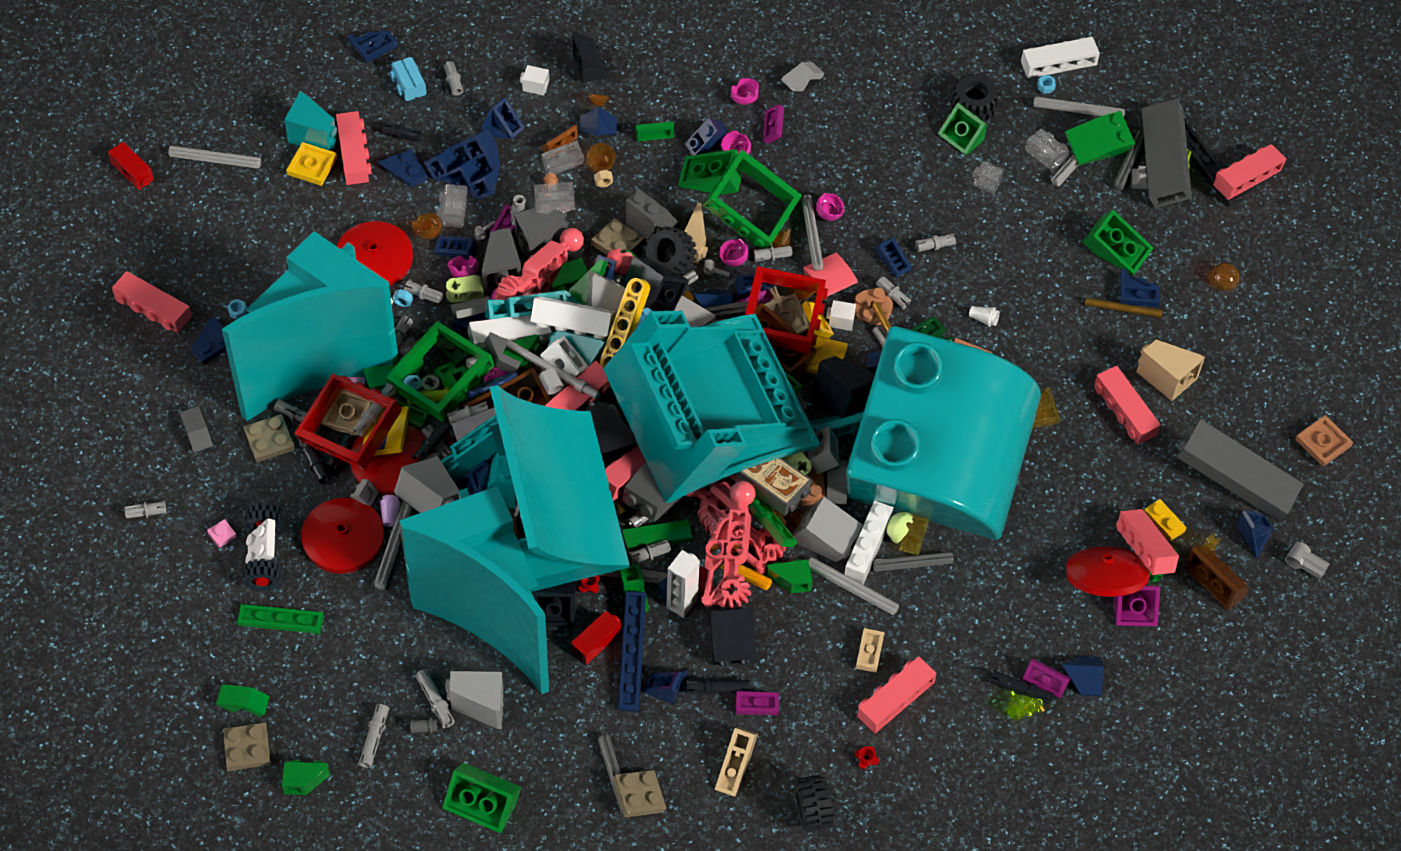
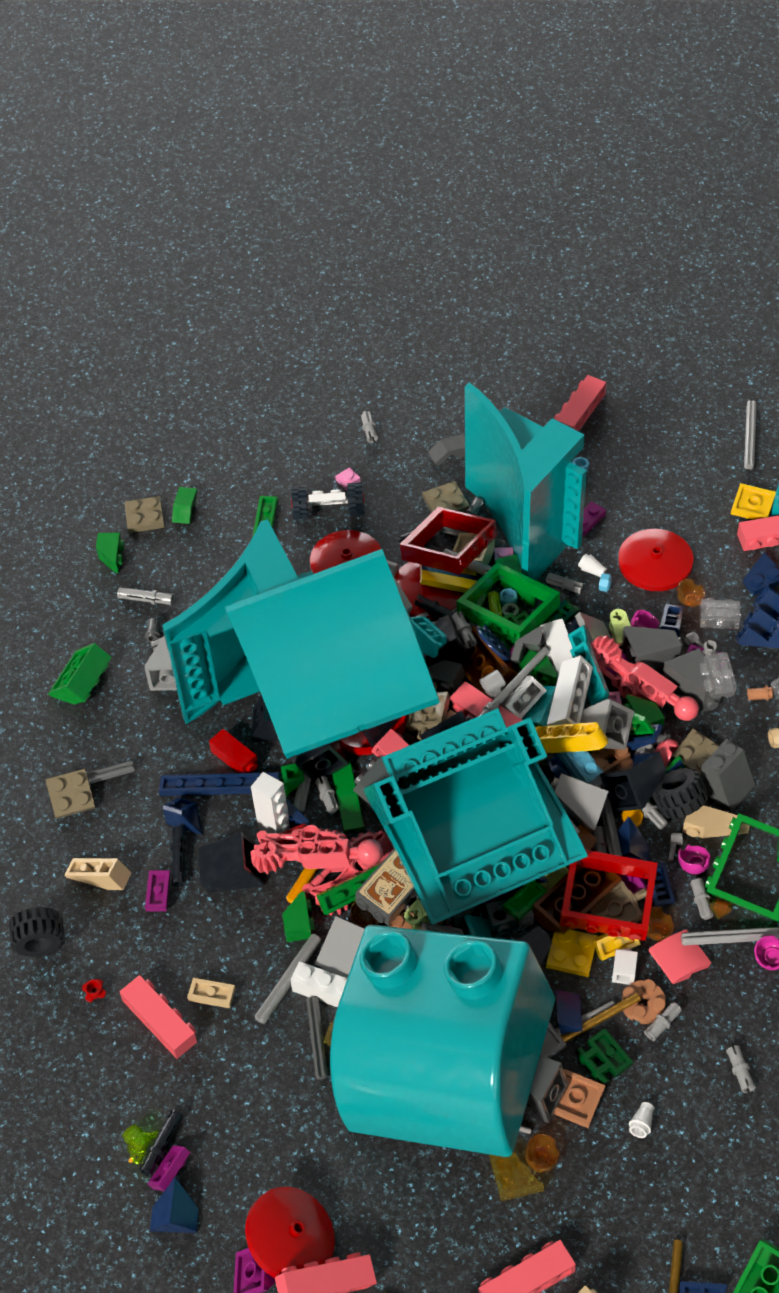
camera: 95 degrees right, 5 degrees down
(130, 165) = (727, 376): red brick -> none
(424, 292) = (615, 597): light grey axle -> none
(895, 249) = (721, 1008): dark blue slope -> none

